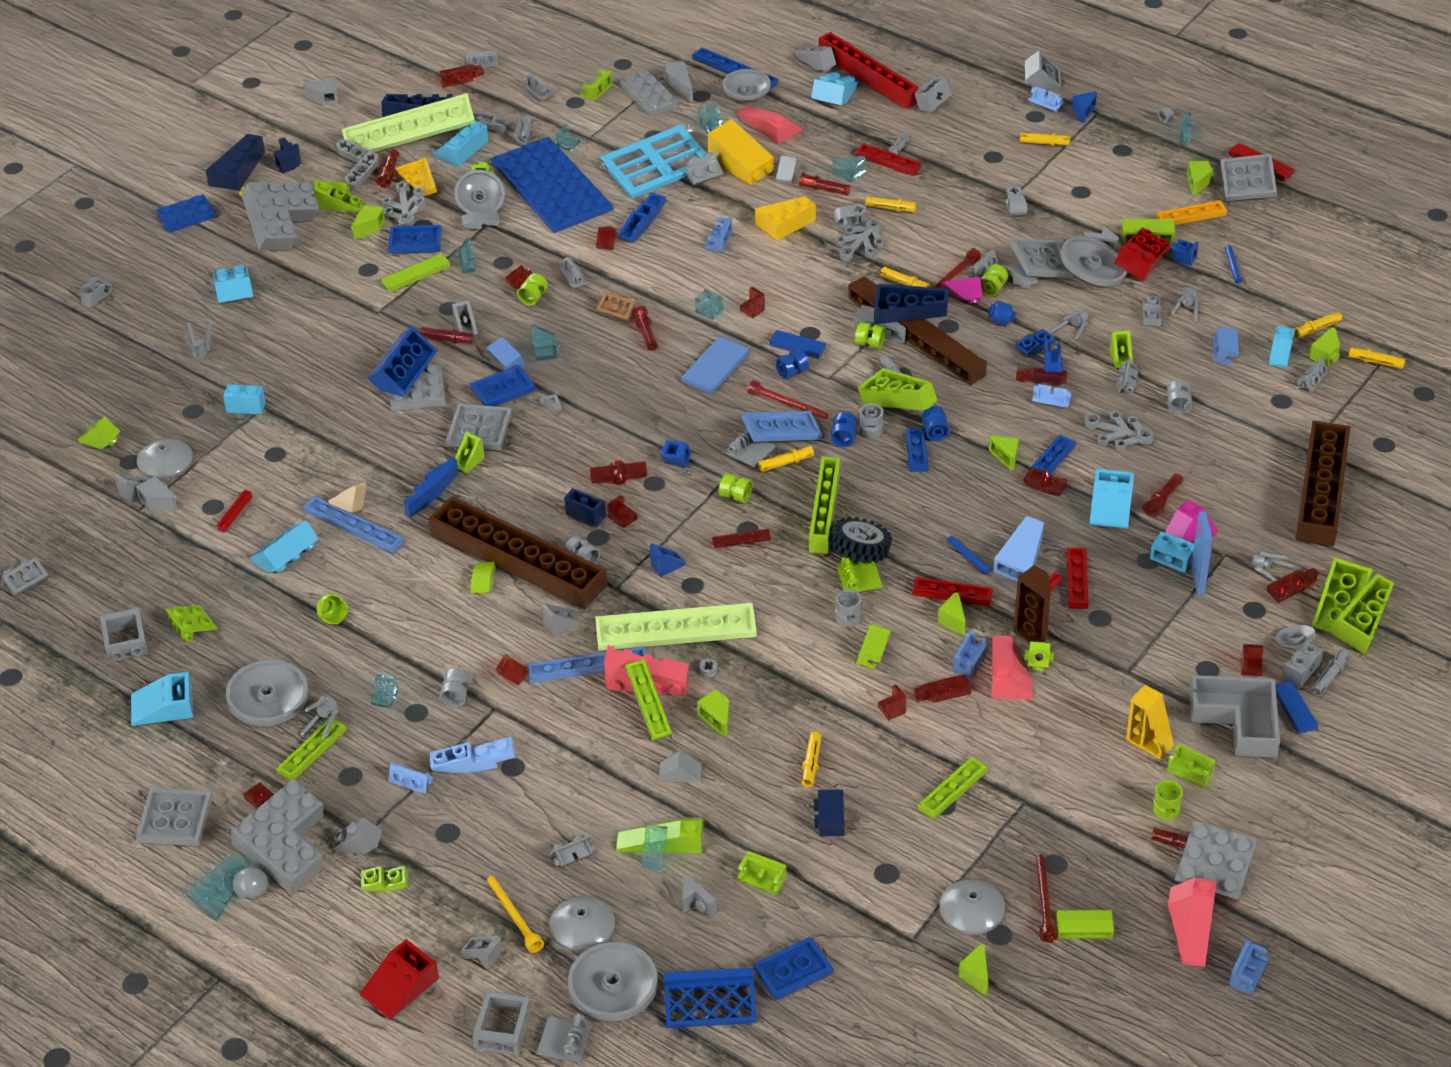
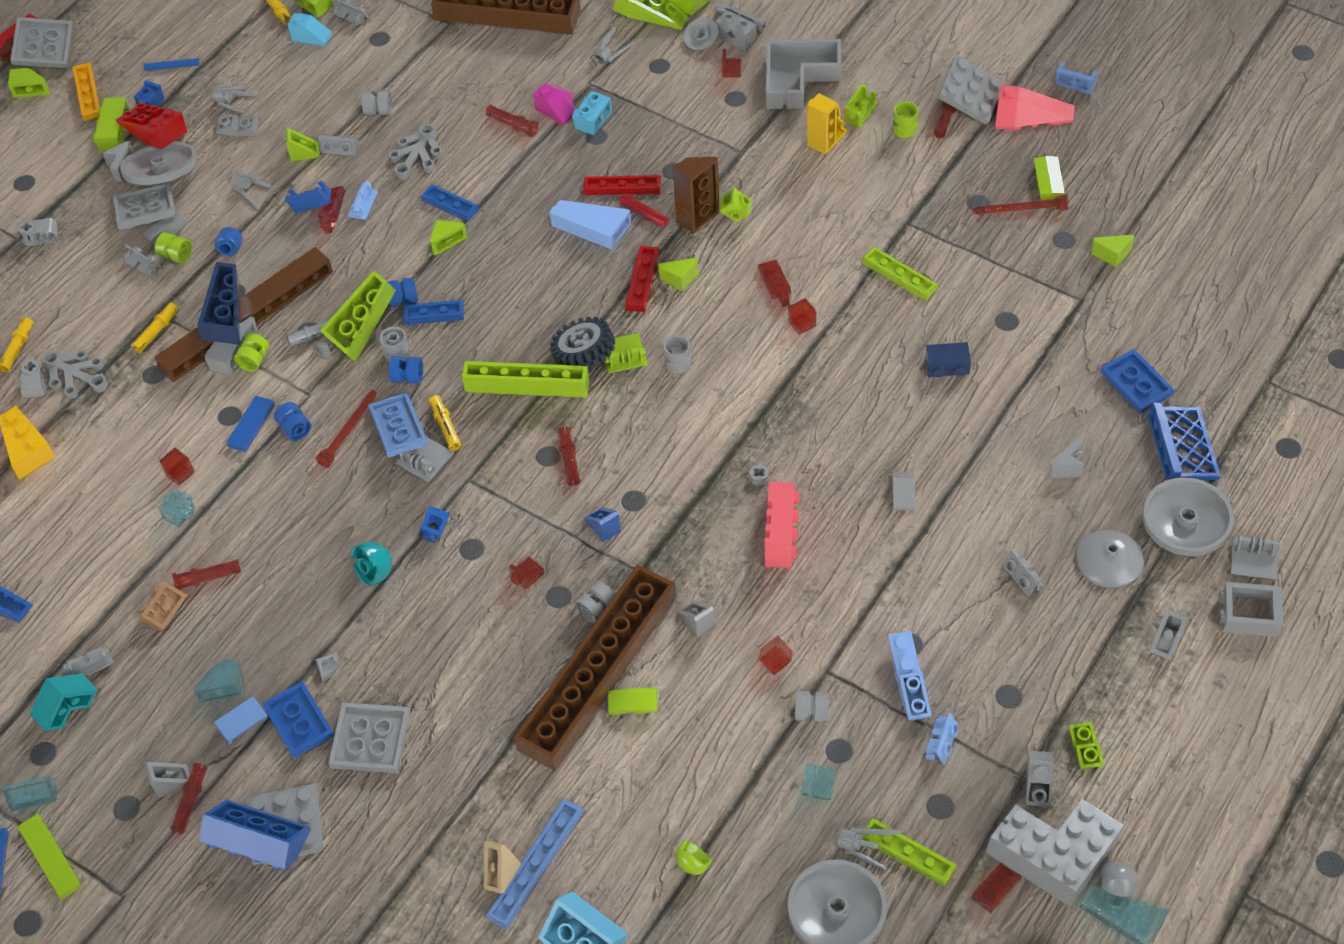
camera: 90 degrees left, 10 degrees up
(400, 979) = (1222, 706): red slope -> none
(434, 484) = (472, 773): blue slope -> none
(470, 452) = (421, 741): lime slope -> none
(518, 276) = (87, 722): clear red bracket -> none
(532, 289) = (117, 703): lime wheel -> none
(532, 941) = (1145, 594): yellow piece -> none
(539, 259) = (59, 698): none -> teal brick
(572, 666) = (759, 585): medium blue tile -> none
(584, 507) = (524, 603): dark blue brick -> none
(606, 237) = (24, 630): clear red bracket -> none
(618, 472) = (460, 580): clear red piece -> none
(639, 416) = (372, 562): none -> teal cylinder
(648, 700) = (822, 513): lime tile -> none
(654, 847) = (1019, 492): clear light blue slope -> none
(676, 626) = (703, 508): yellowish green plate -> none
(683, 836) = (988, 487): lime wedge -> none
(715, 365) = (278, 500): medium blue tile -> none
(715, 711) = (825, 459): lime slope -> none
(720, 235) = (39, 509): medium blue hinge -> none
(737, 488) = (494, 461): lime wheel -> none
(762, 873) = (1029, 410): lime hinge -> none
(810, 765) = (873, 379): yellow pin -> none
(873, 646) = (725, 336): lime hinge -> none
(965, 289) = (183, 269): dark pink slope -> none
(969, 555) = (591, 266): blue bar -> none
(969, 655) = (733, 263): medium blue hinge -> none
(971, 257) = (125, 269): clear red piece -> none
(972, 907) = (1037, 258): light grey dish -> none
(1009, 672) = (748, 235): coral wedge -> none
(1034, 344) = (275, 216): blue slope -> none
(1043, 482) = (489, 208): clear red slope -> none
(1111, 498) = (521, 153): medium azure slope -> none
(1201, 553) = (620, 74): medium blue tile -> none
(1225, 344) = (300, 70): medium blue hinge -> none
(1292, 584) = (633, 36): clear red hinge -> none
(1295, 707) = (760, 45): blue tile -> none

